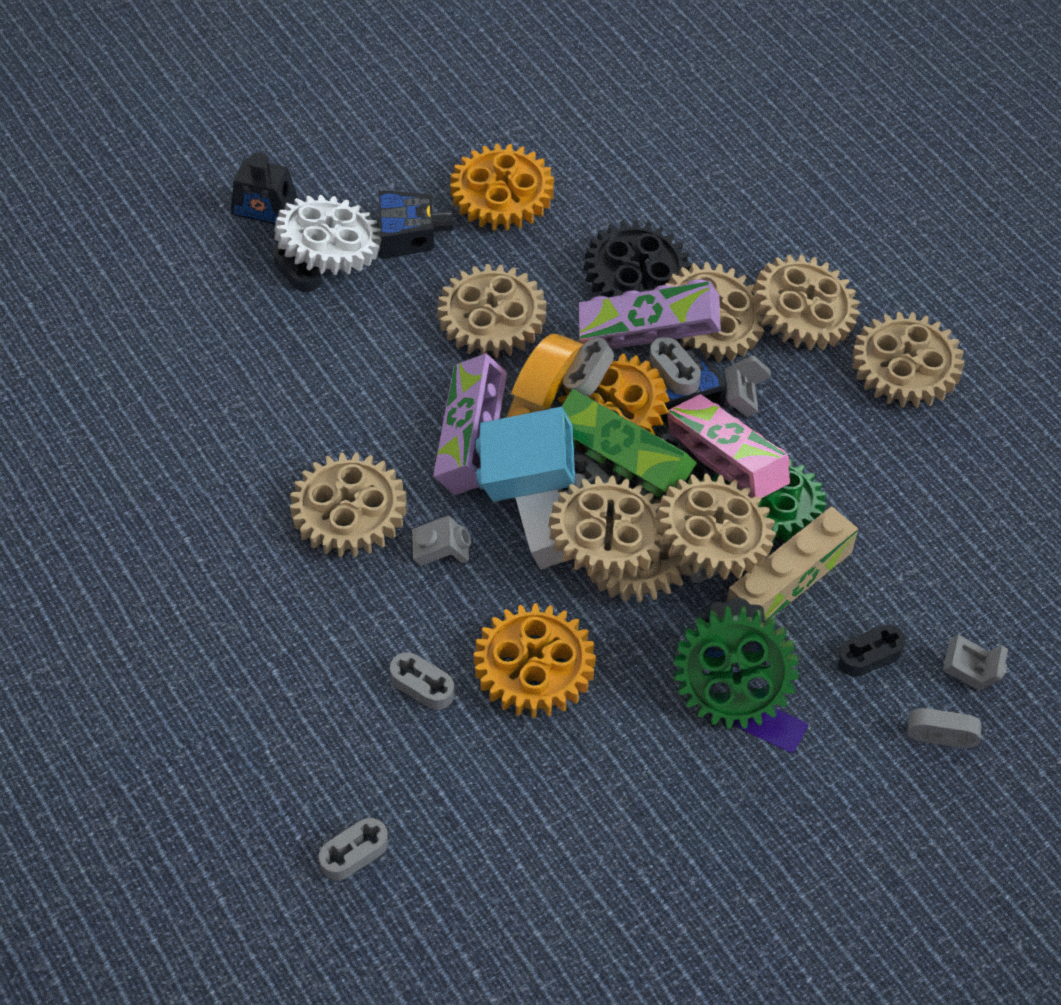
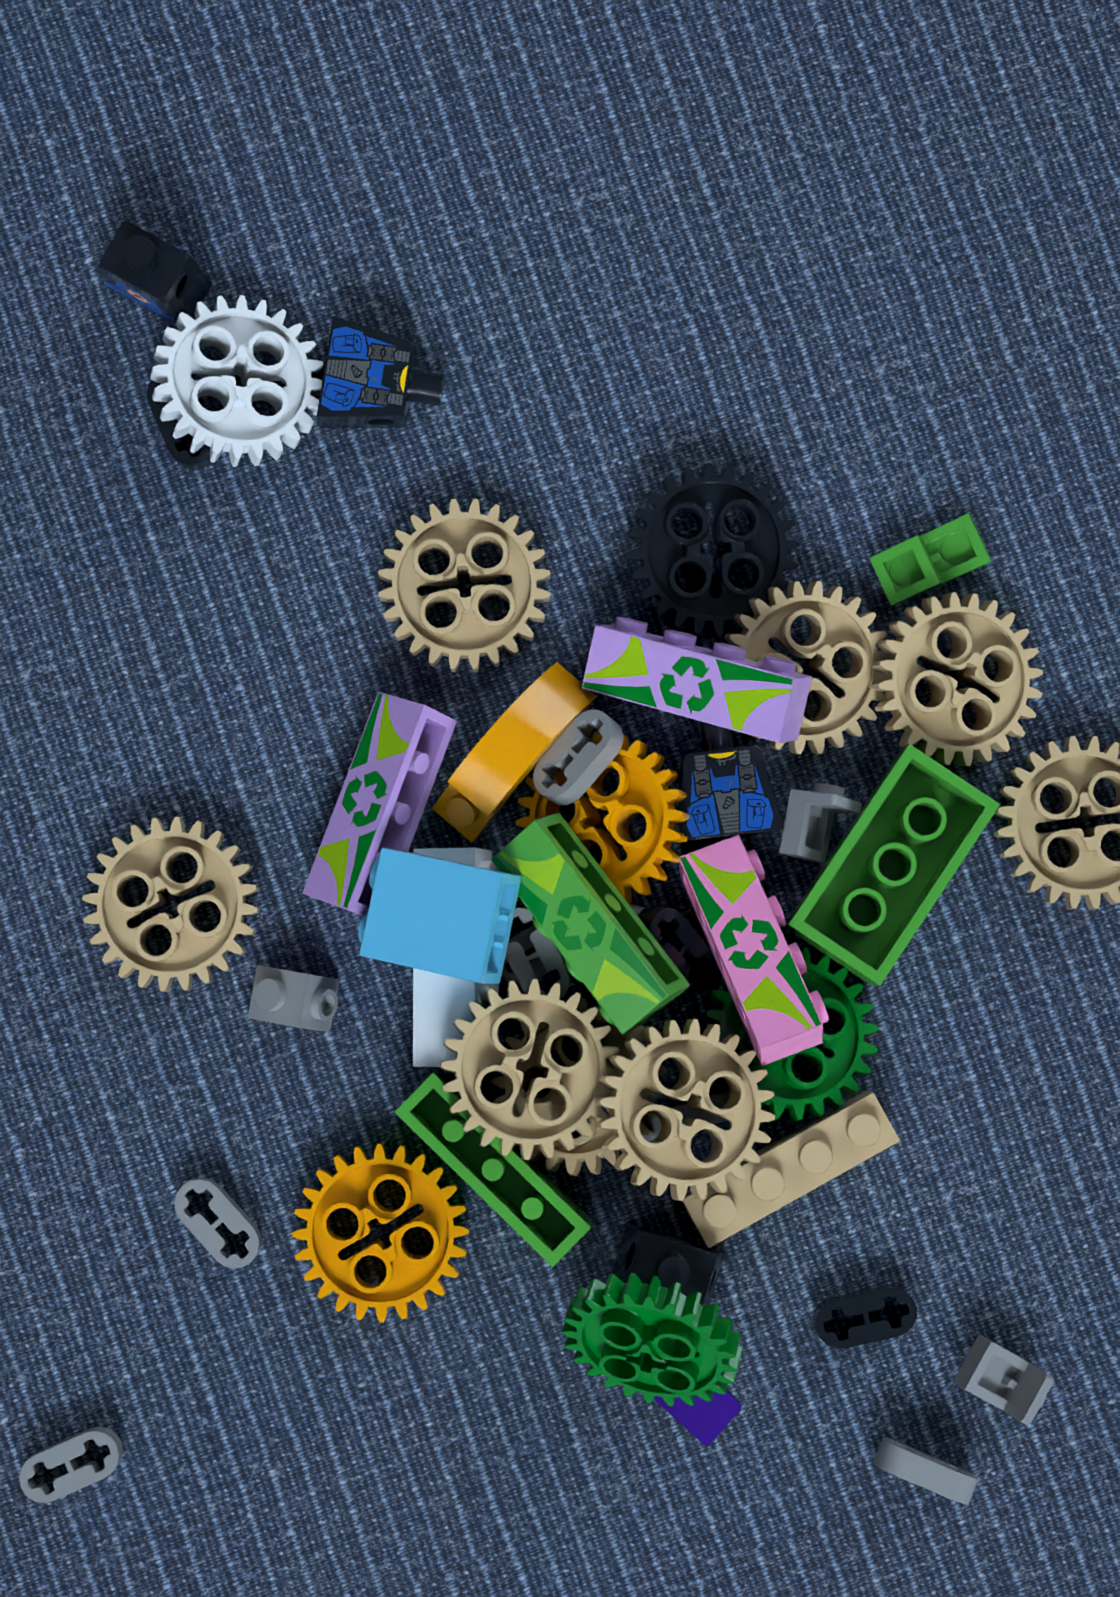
camera: 10 degrees right, 30 degrees up
(502, 186) = (580, 317): light orange gear -> none
(600, 602) = (506, 1183): none -> bright green brick
(679, 363) = (723, 779): light grey beam -> none
(757, 253) = (930, 559): none -> bright green slope
(801, 391) = (891, 865): none -> bright green brick

